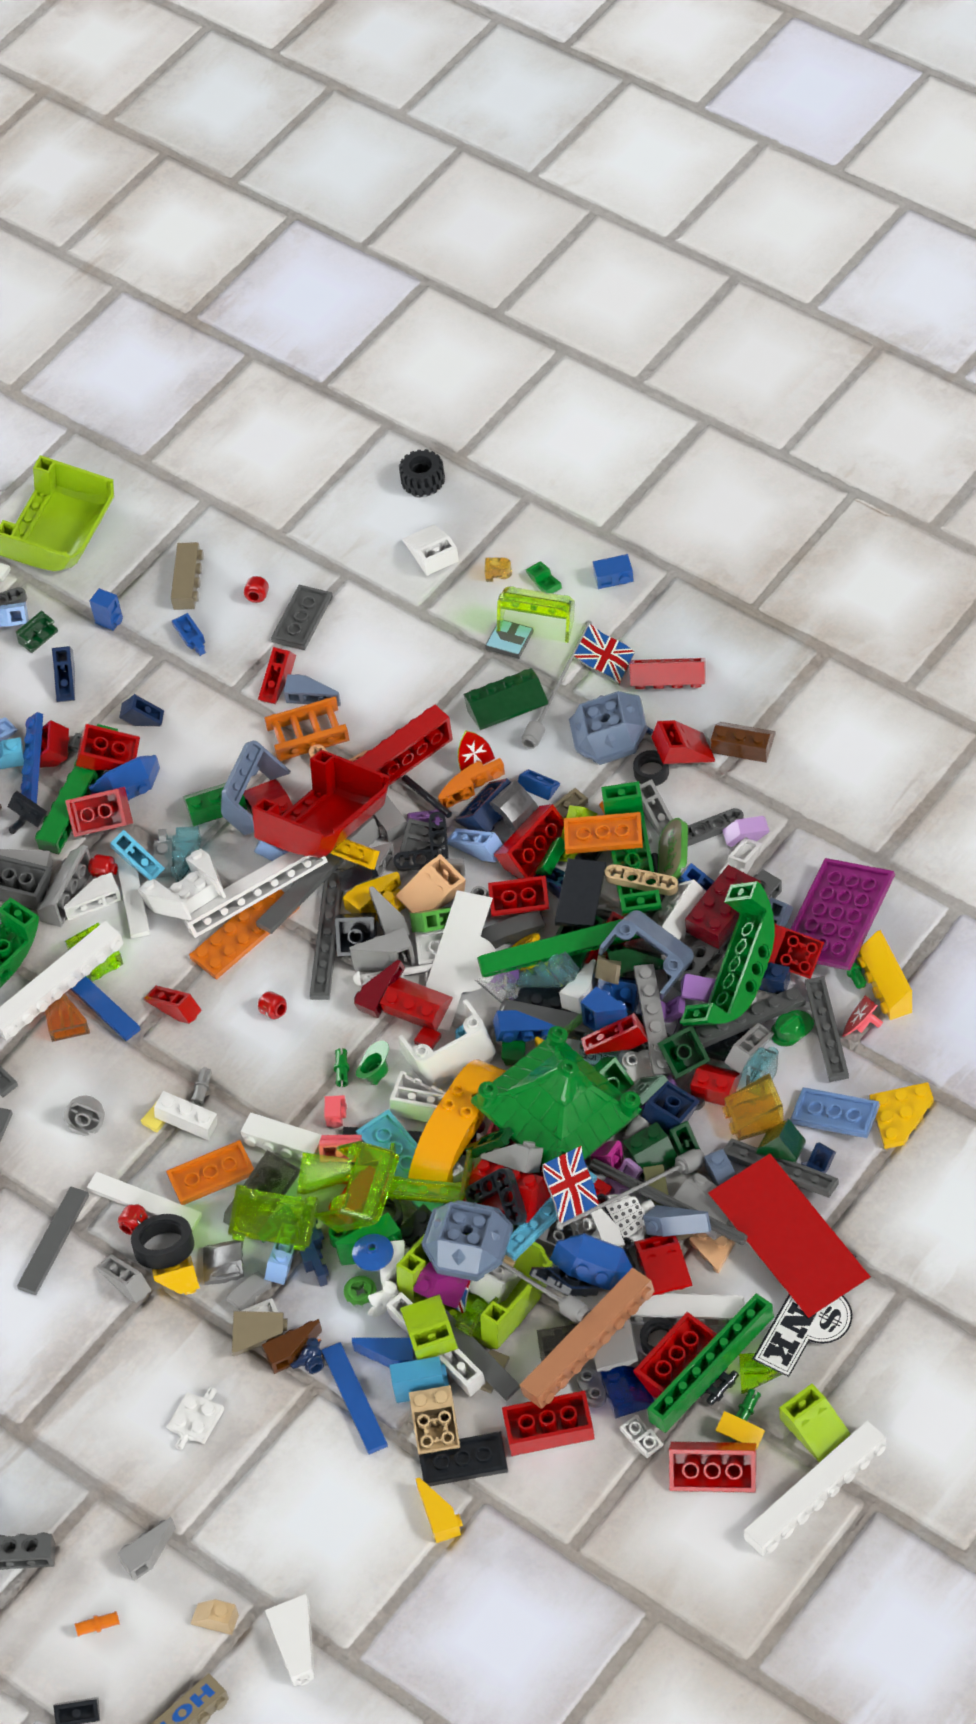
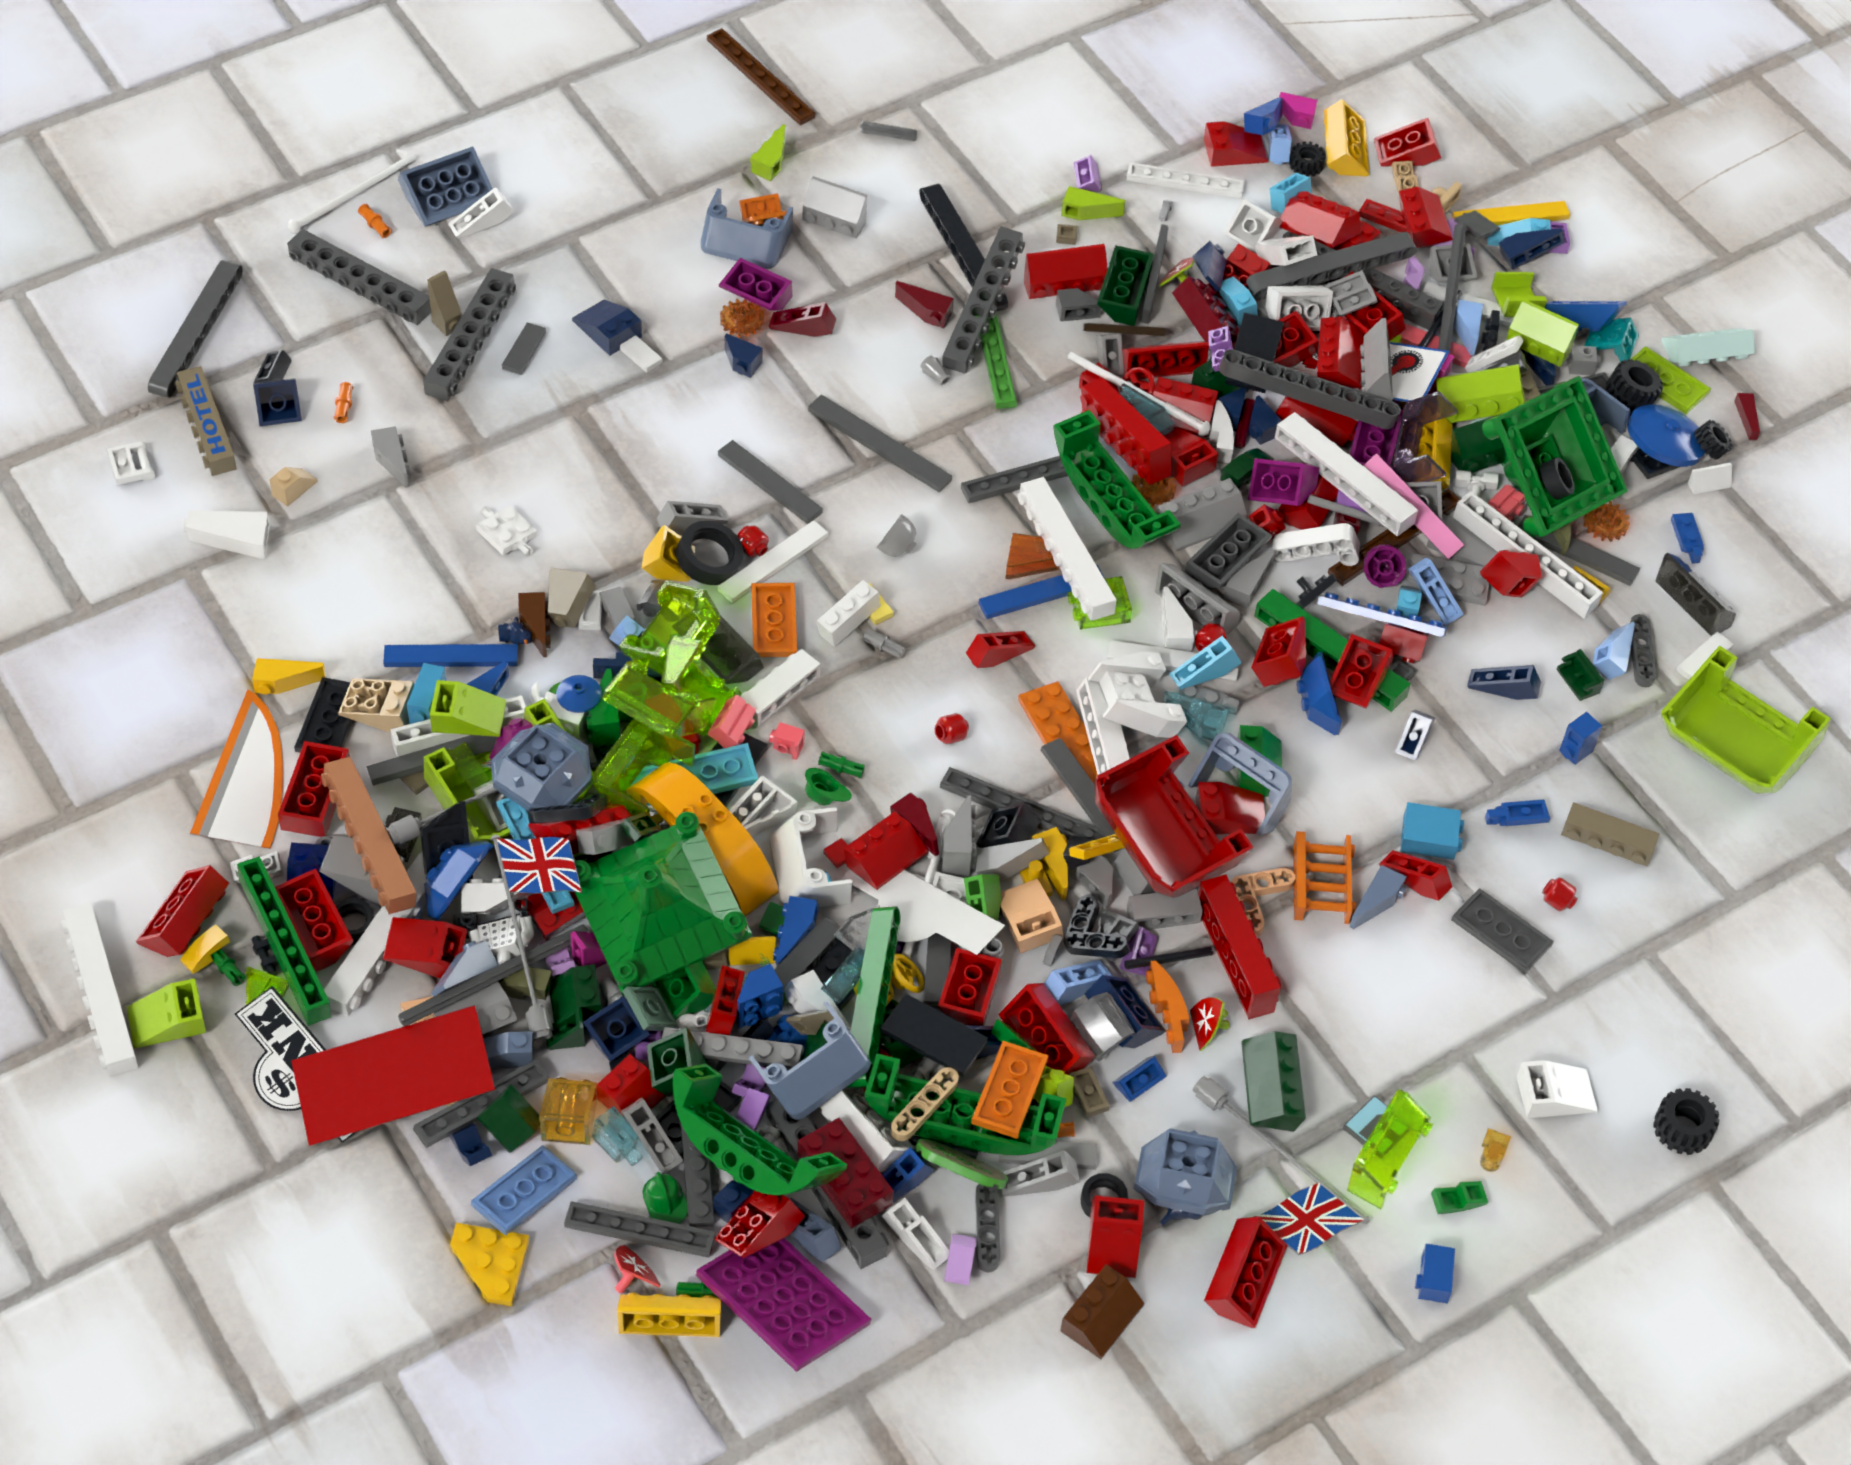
camera: 100 degrees right, 0 degrees up
(118, 1680) = (277, 402): none -> dark blue slope
(232, 678) = (1431, 831): none -> dark azure brick
(558, 1492) = (247, 781): none -> sticker

